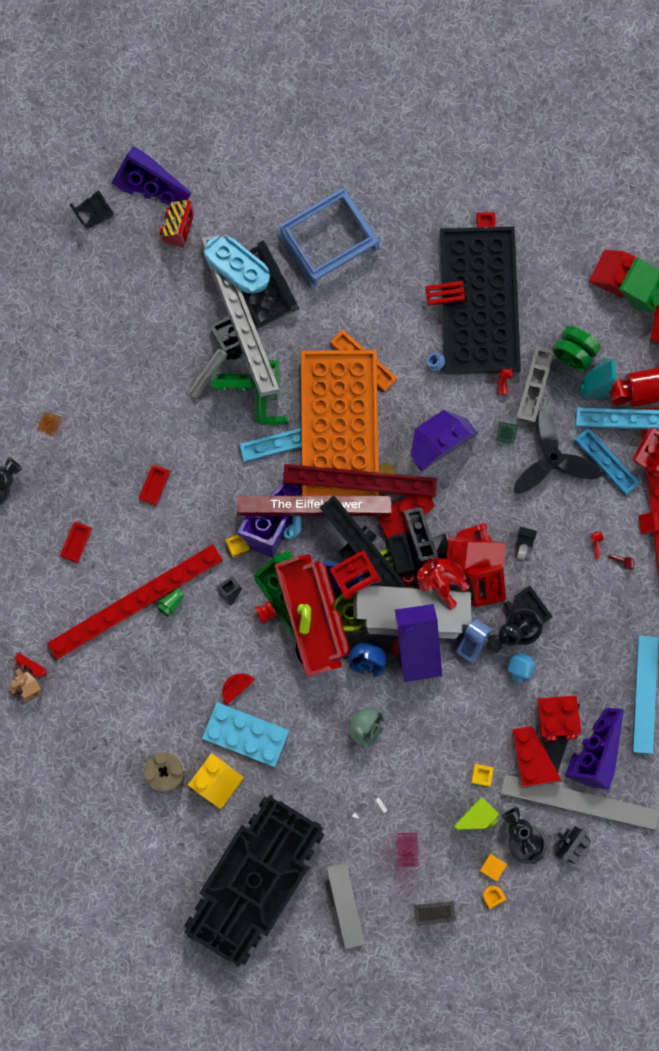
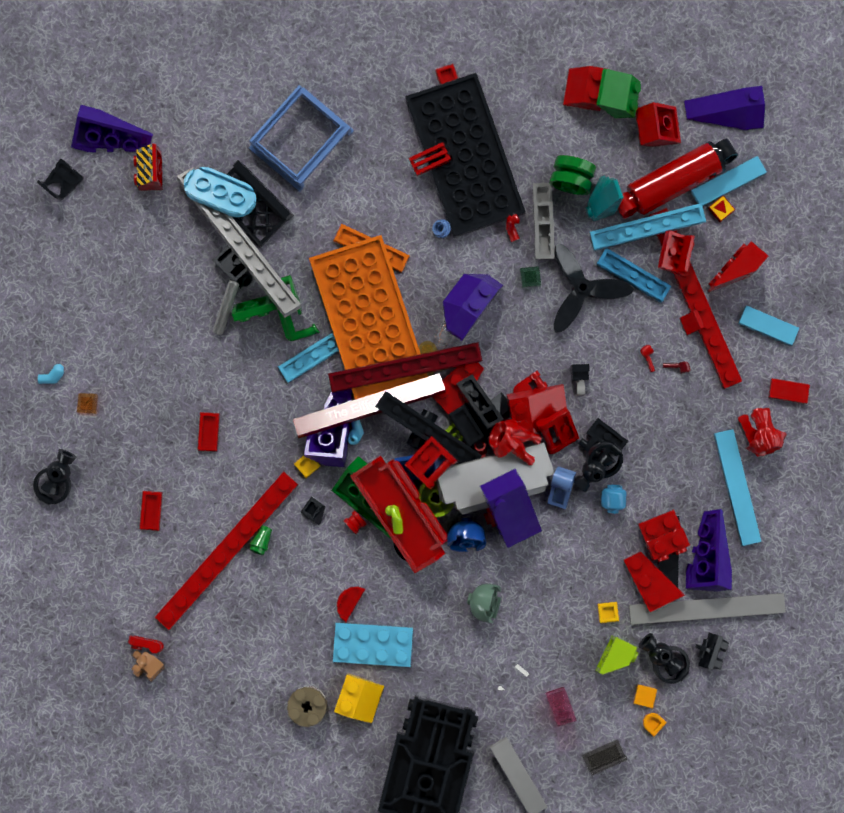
camera: 20 degrees left, 5 degrees up
(25, 389) = (53, 377): none -> medium azure arm

